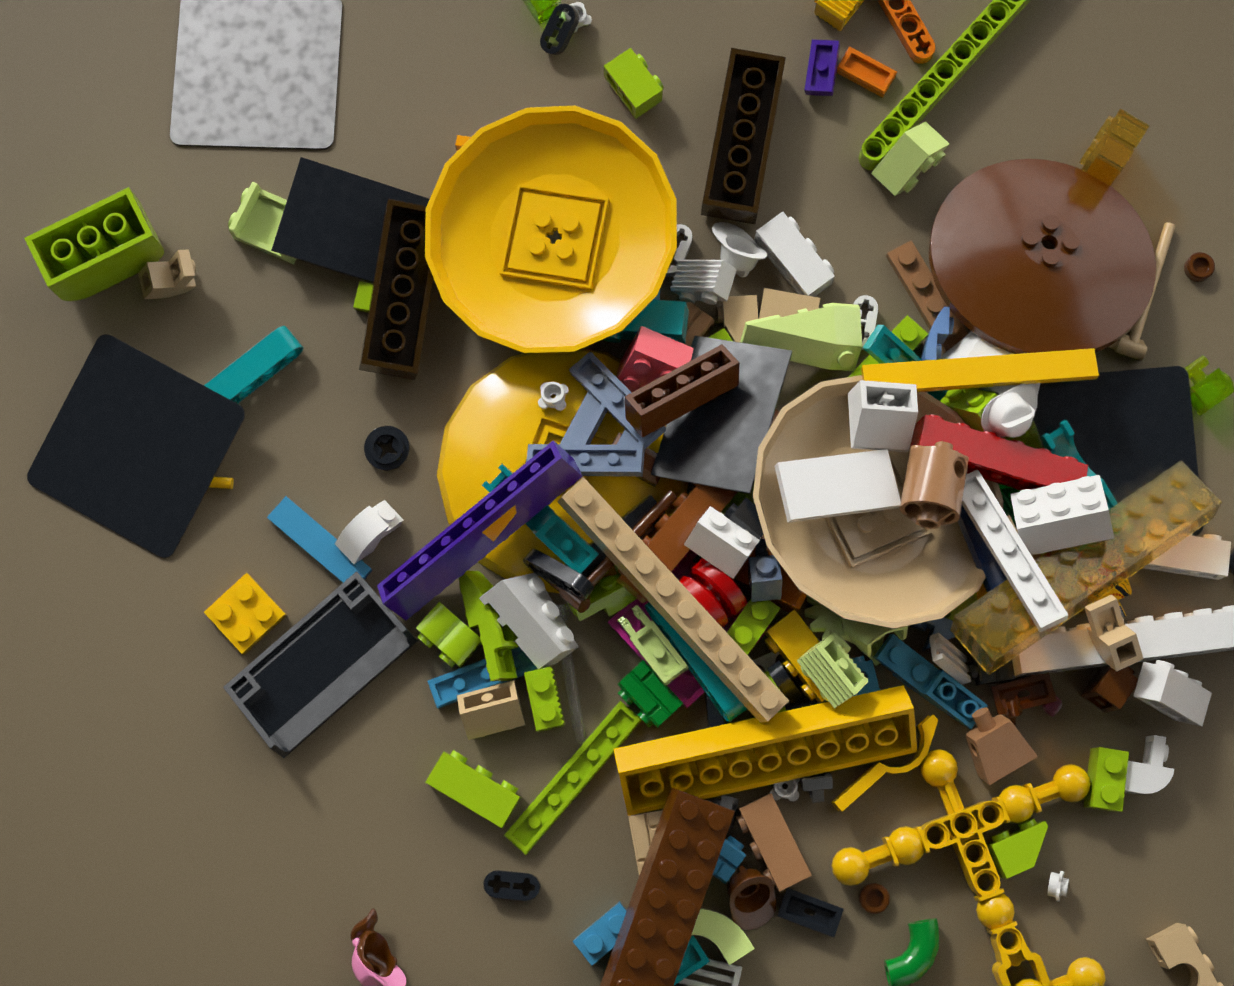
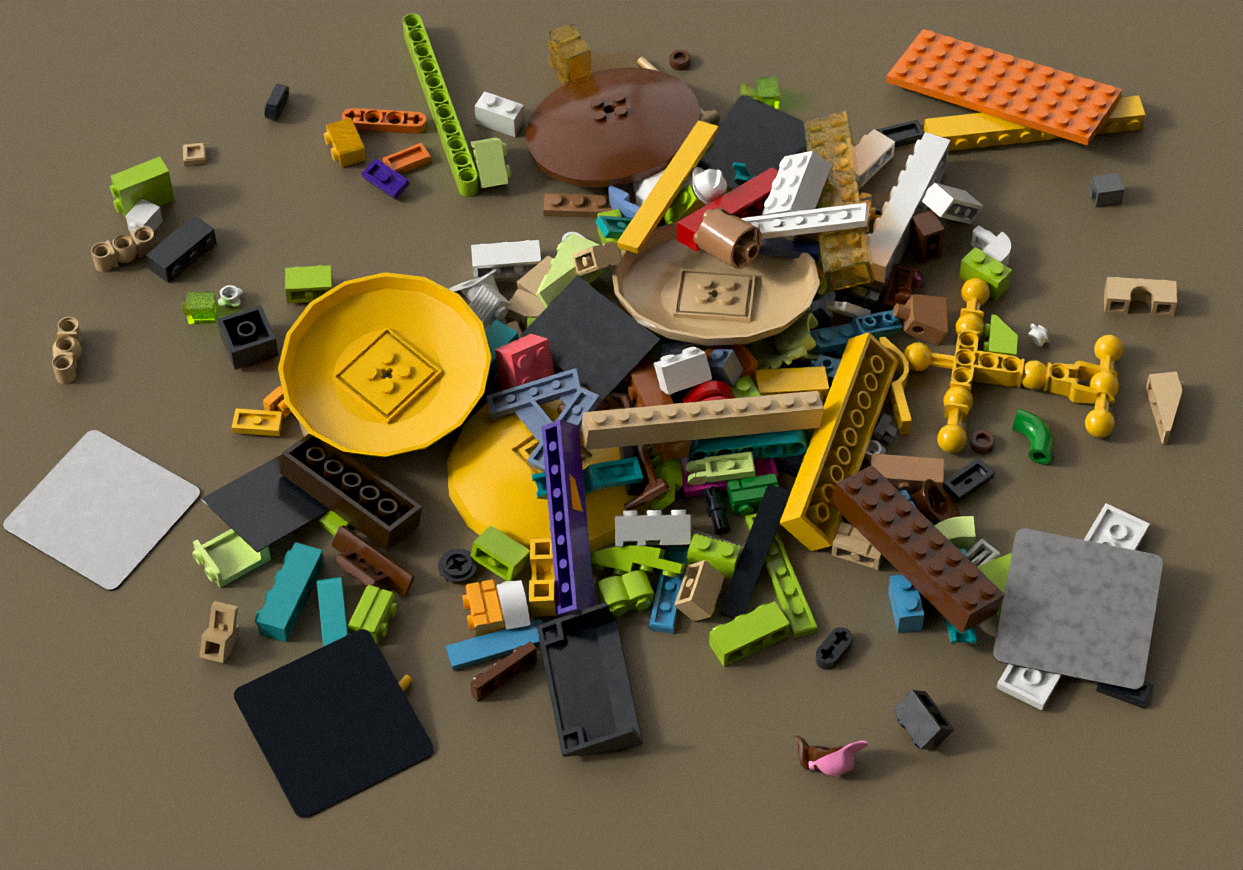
camera: 60 degrees left, 25 degrees down
(95, 247) = (165, 655): lime brick -> none
(245, 613) = (514, 719): yellow plate -> none
(258, 308) = (289, 592): none -> teal brick
(278, 404) = (374, 612): none -> lime brick
(288, 569) = (503, 671): none -> reddish brown plate
(331, 361) = (369, 563): none -> reddish brown bracket
(346, 504) = (484, 608): none -> light orange brick
(394, 552) = (542, 586): none -> yellow arch
(419, 482) = (500, 553): none -> lime brick
(435, 142) = (257, 422): none -> yellow plate
(527, 68) = (247, 337): none -> black brick
(549, 389) = (501, 432): white plate -> none
(554, 26) = (227, 307): black beam -> none
(558, 574) = (651, 474): black beam -> none
(573, 739) = (755, 552): none -> black tile
(608, 666) = (716, 510): none -> black pin
(682, 390) = (560, 341): reddish brown brick -> none
(743, 136) = (397, 238): dark brown brick -> none
(824, 359) = (597, 258): none -> tan brick
(832, 671) = (813, 363): yellowish green brick -> none
(837, 485) = (691, 288): white tile -> none
(882, 415) = (660, 243): white slope -> none
(986, 126) = (499, 114): none -> white brick
(1110, 635) = (893, 204): tan brick -> none

